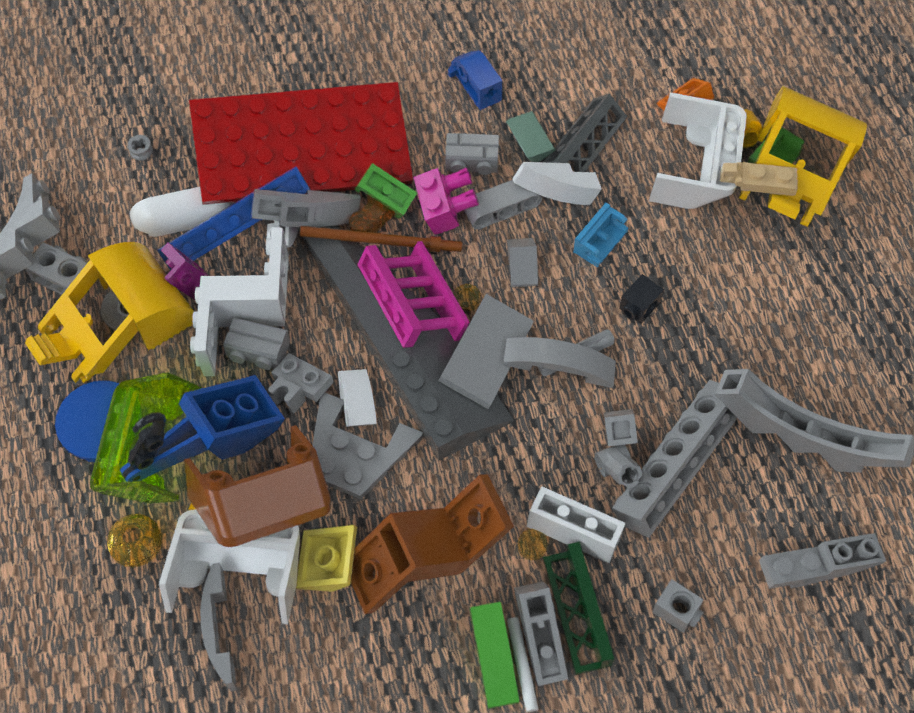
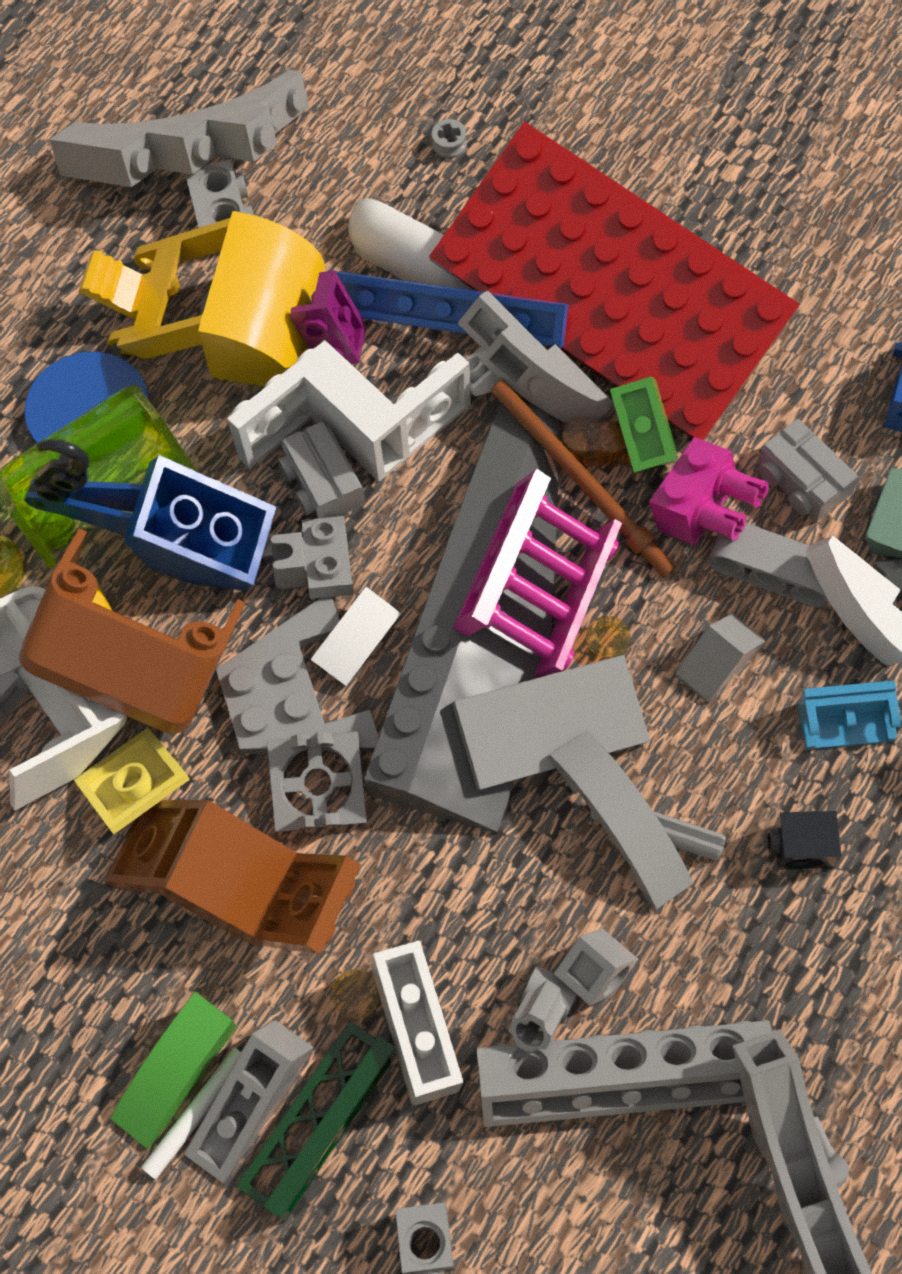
camera: 50 degrees right, 5 degrees up
(384, 480) = (284, 750): none -> light grey piece

